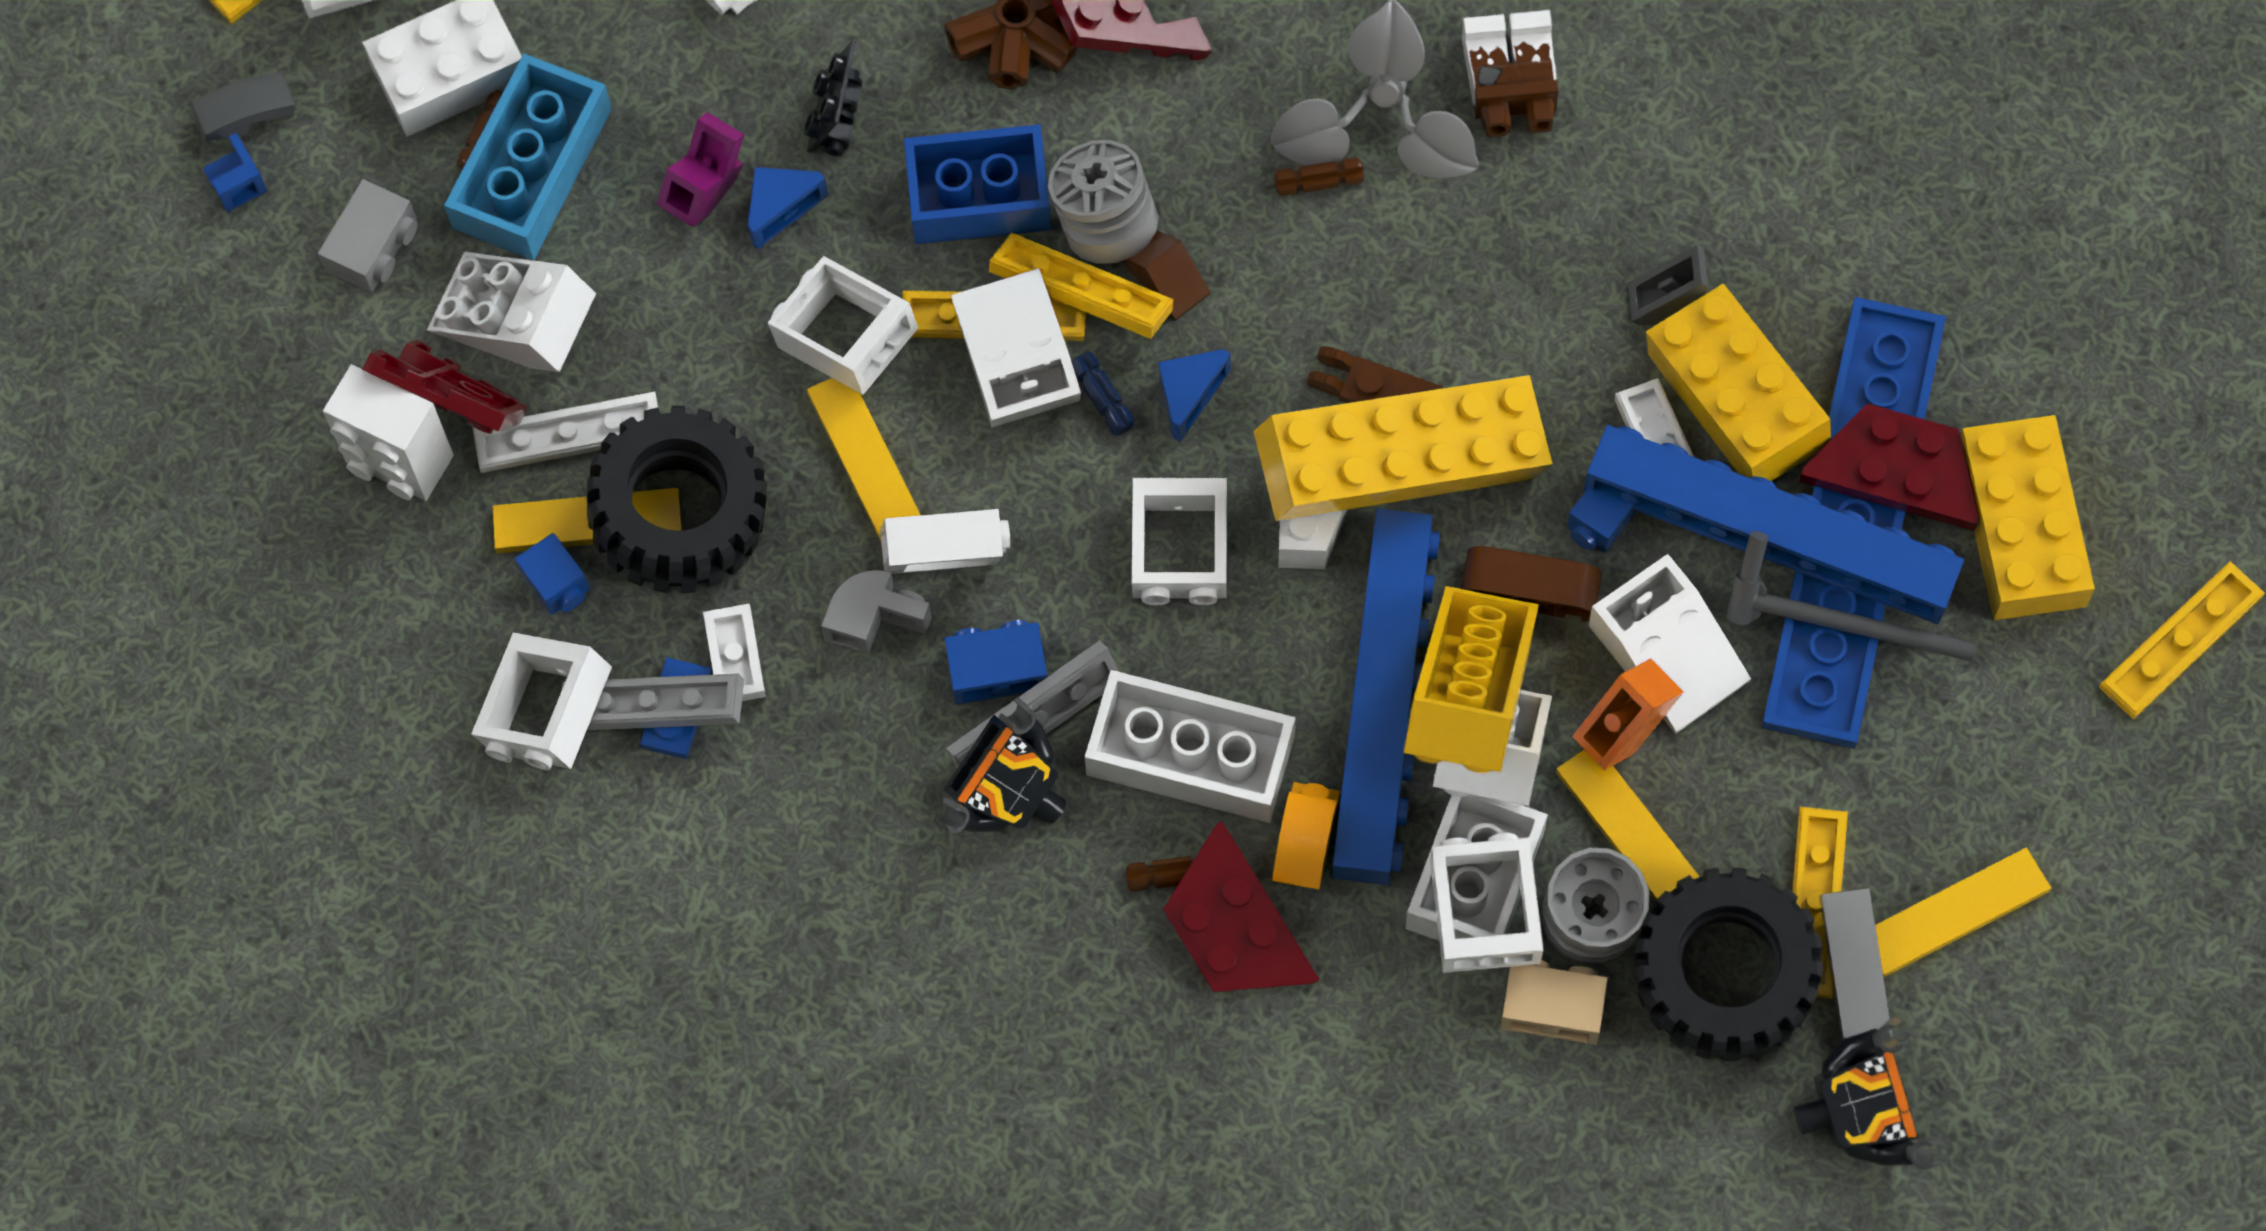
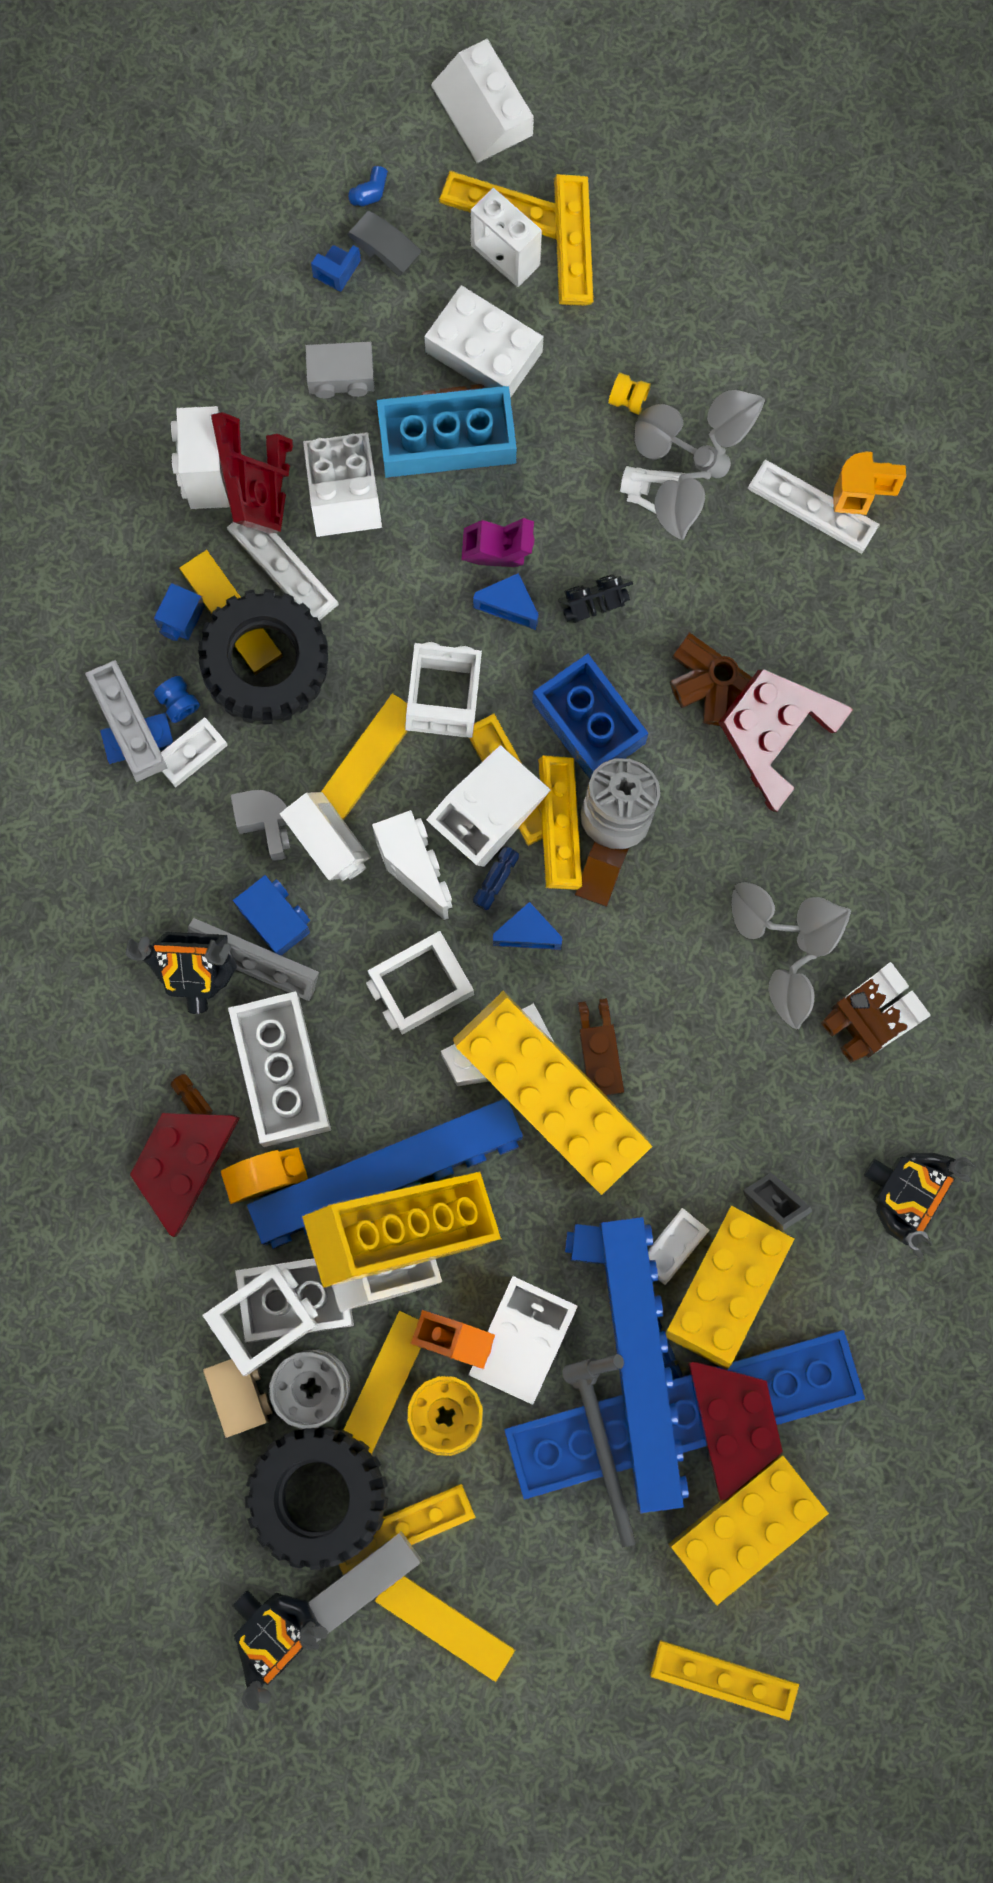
camera: 55 degrees right, 10 degrees up
(166, 89) = (370, 191): none -> blue arm
(572, 714) = (93, 675): white window -> none
(659, 634) = (176, 699): none -> blue wheel
(1030, 466) = (406, 858): none -> white slope
(1319, 176) = (727, 930): reddish brown axle -> none
(1551, 582) = (517, 1225): reddish brown beam -> none
(1717, 746) = (451, 1395): none -> yellow wheel
(1740, 140) = (913, 1193): none -> torso

